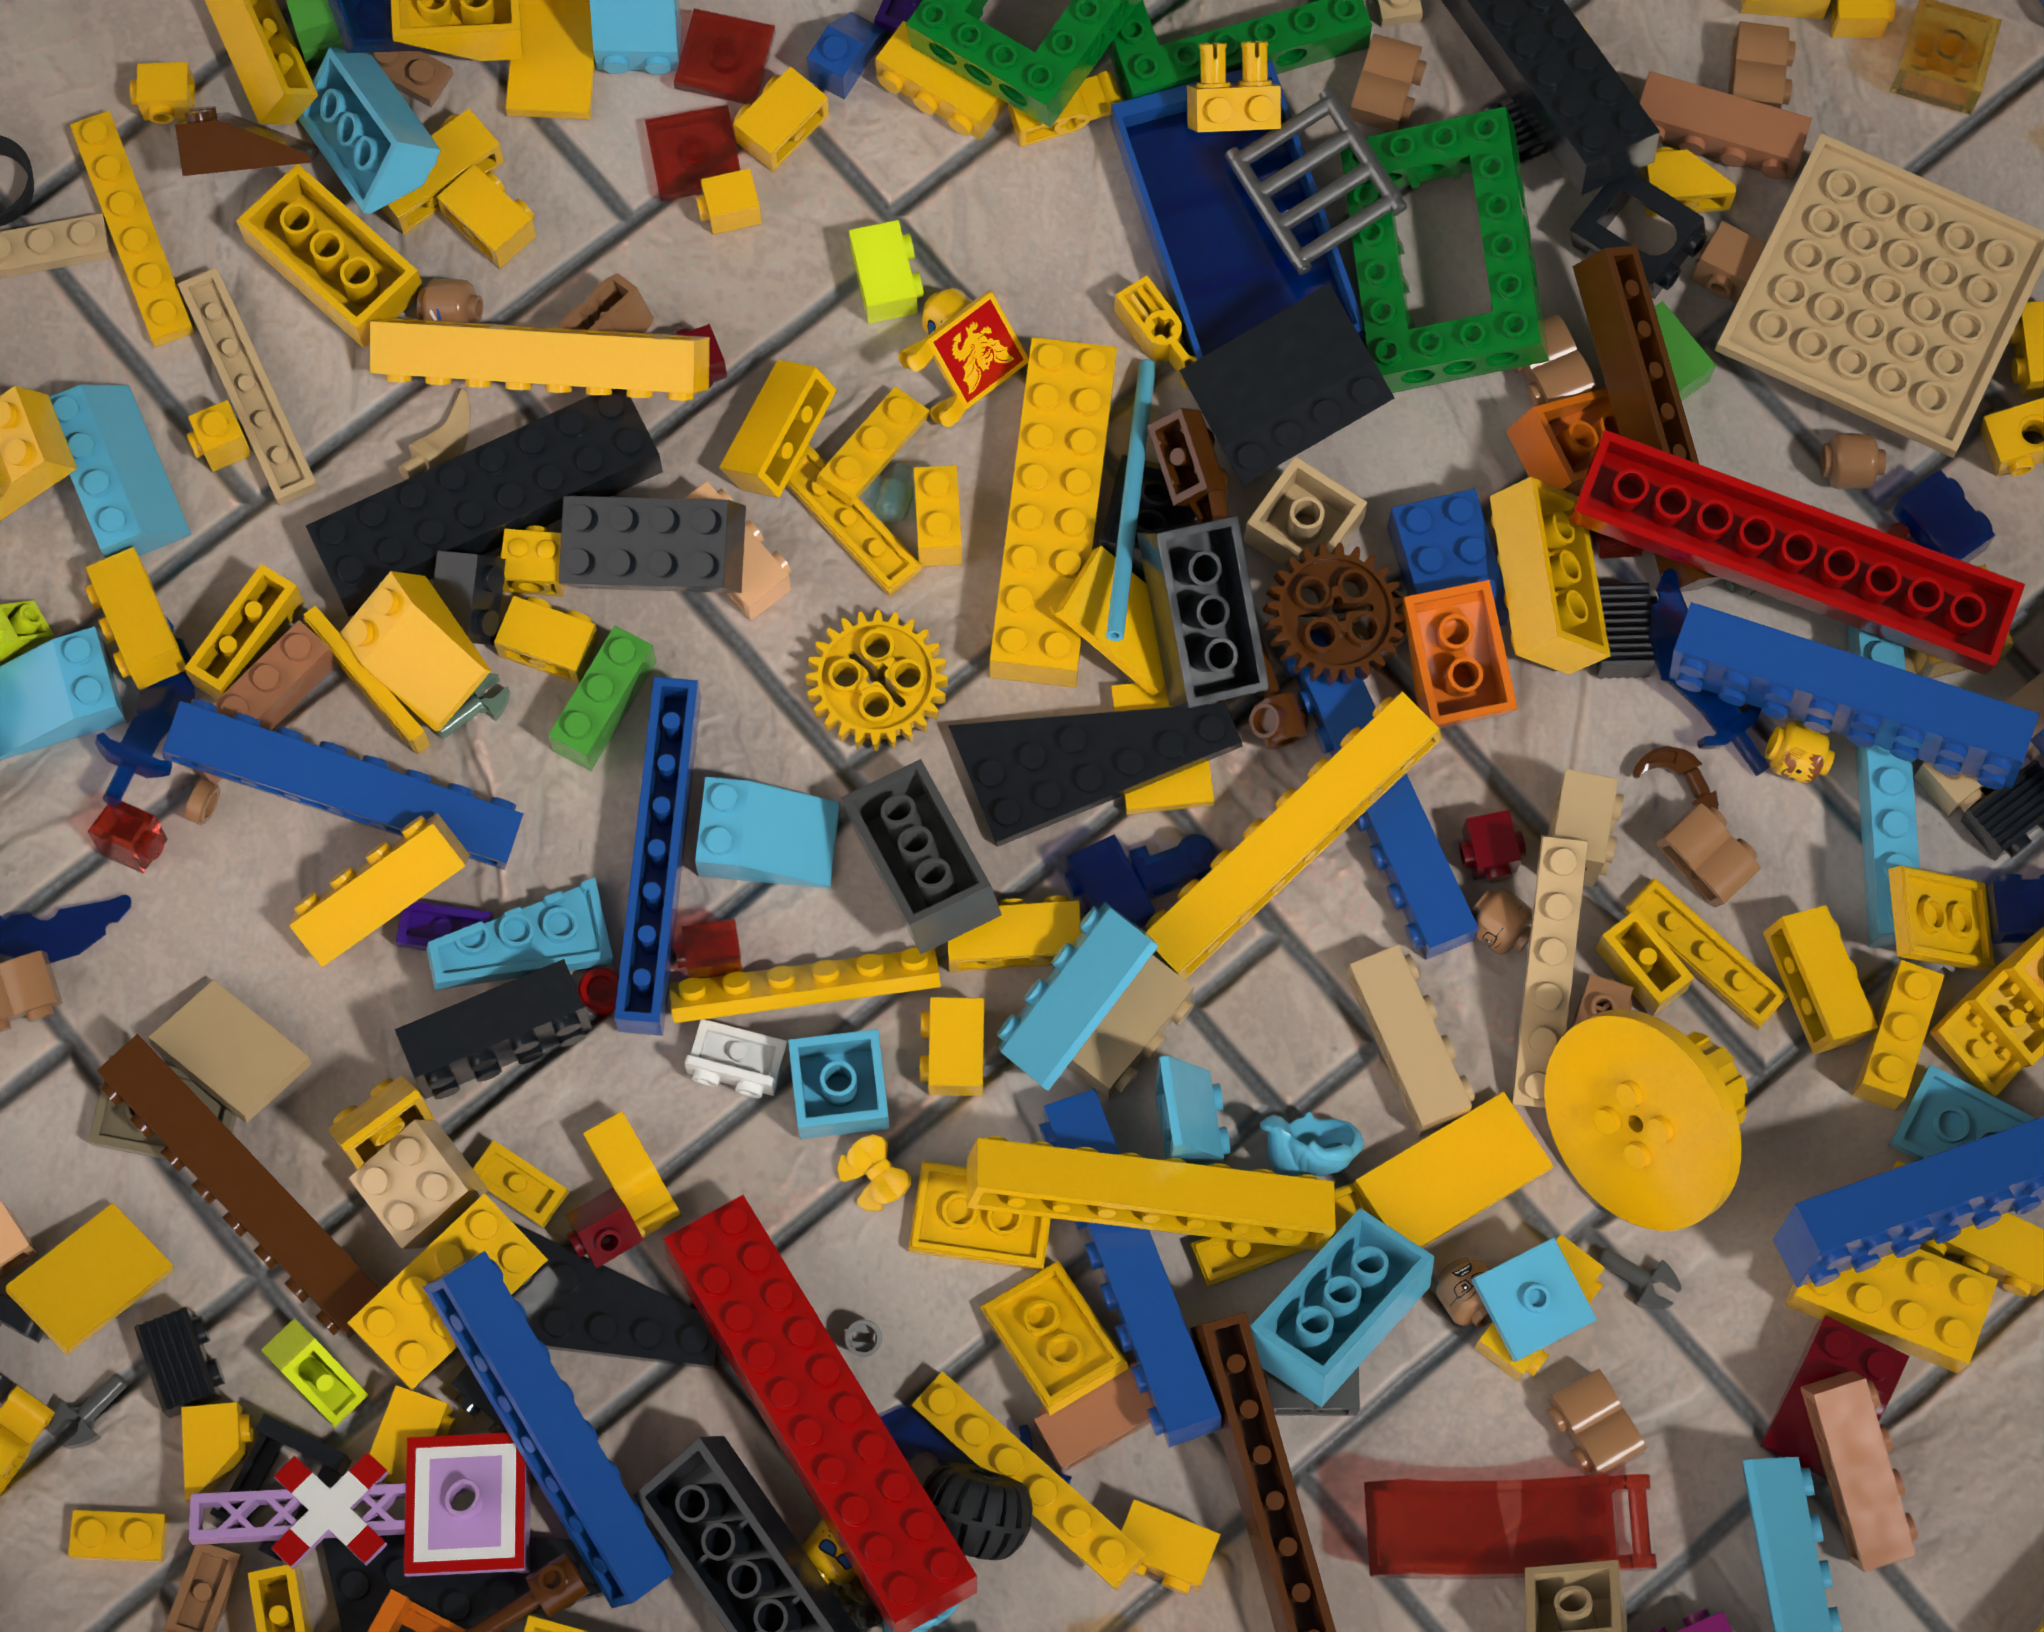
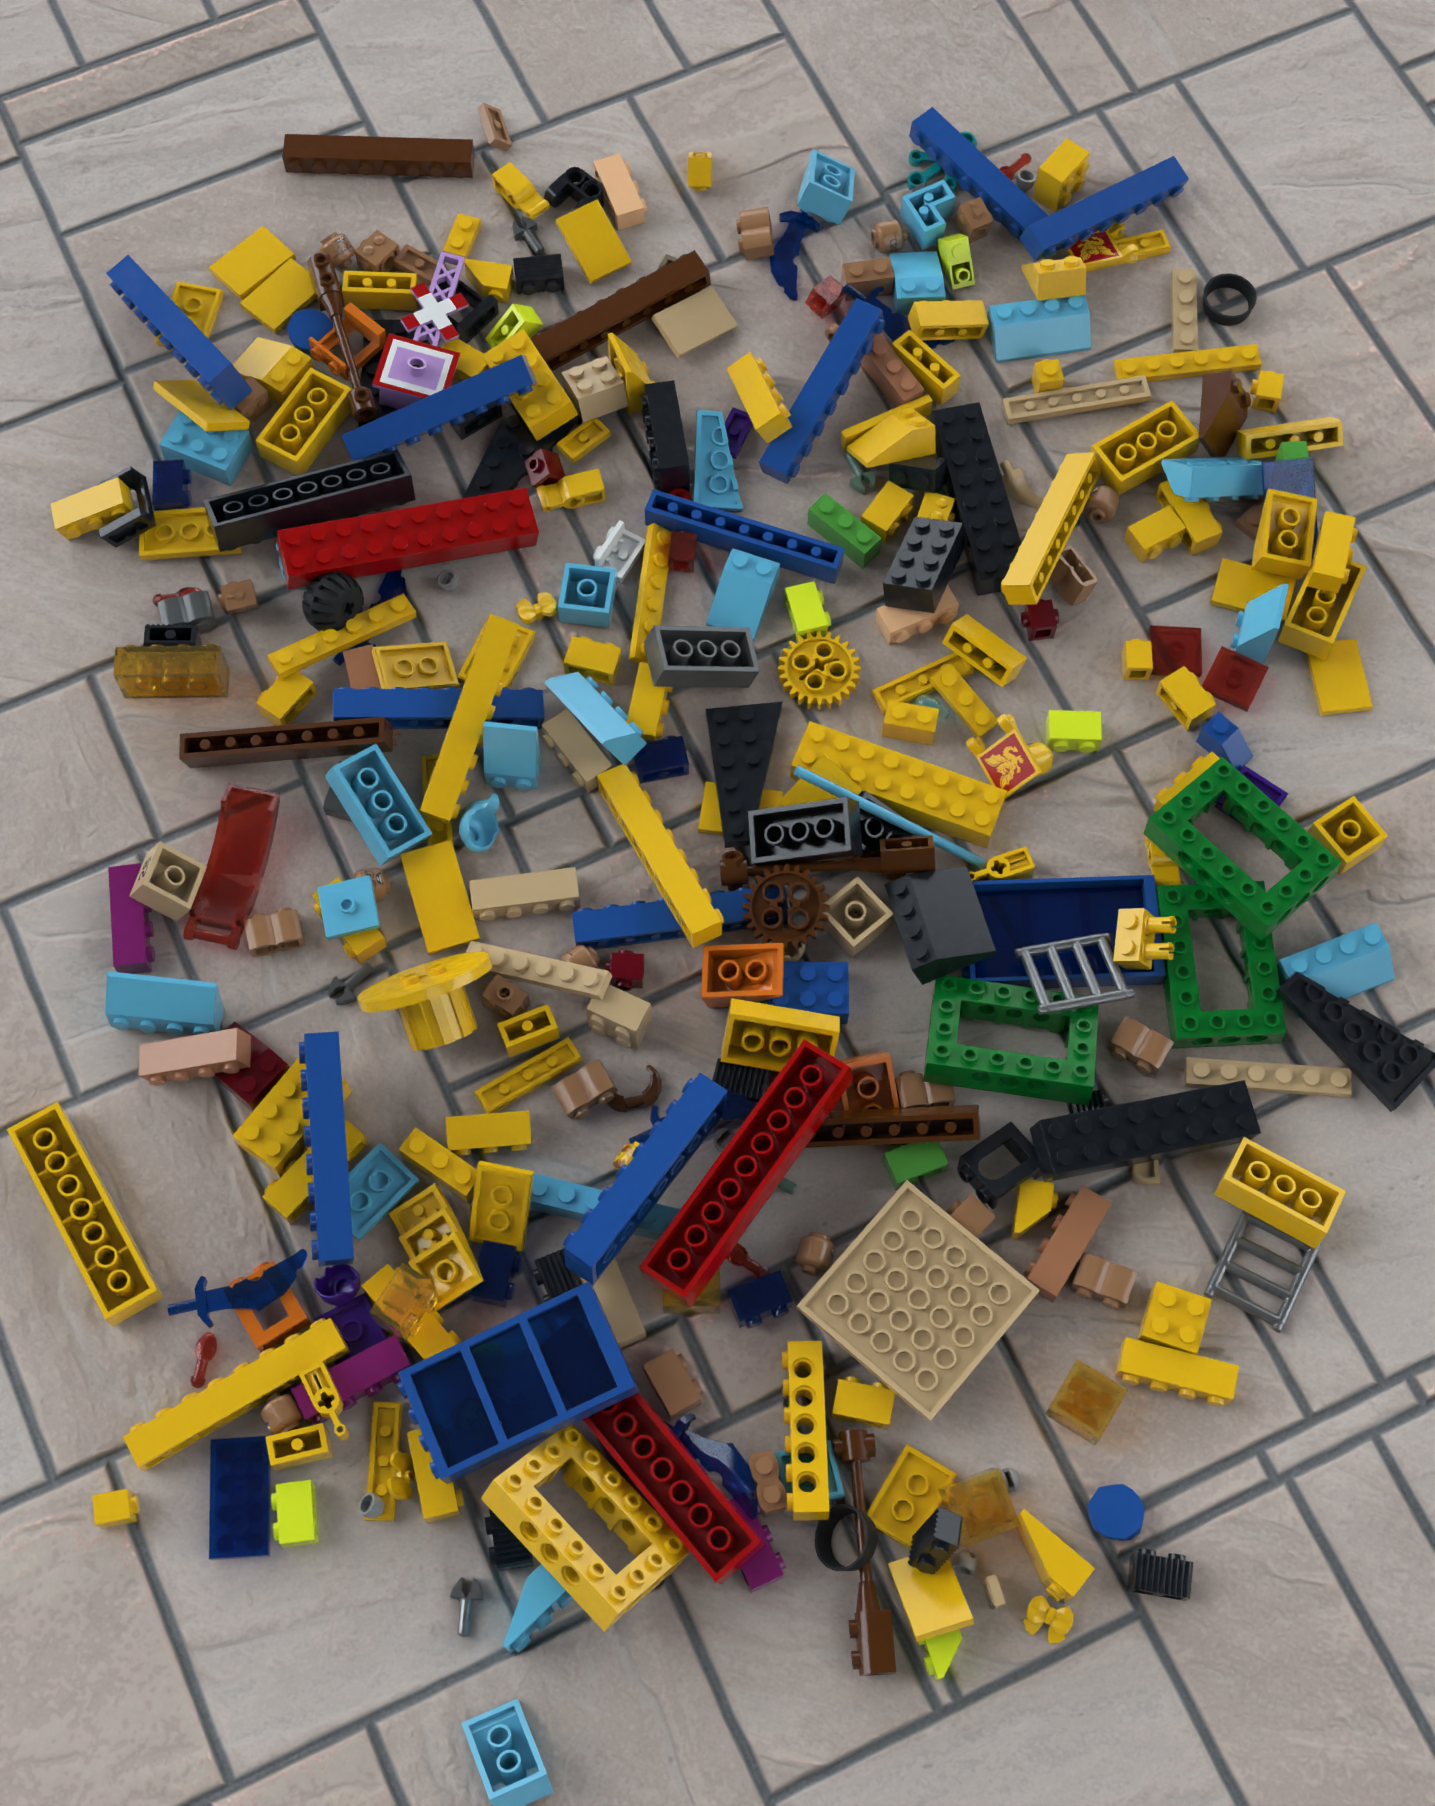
camera: 105 degrees right, 5 degrees down
(70, 774) = (868, 276): none -> medium nougat brick
(772, 723) = (806, 610): none -> neon yellow brick
(1172, 867) = (663, 786): clear blue leg -> none

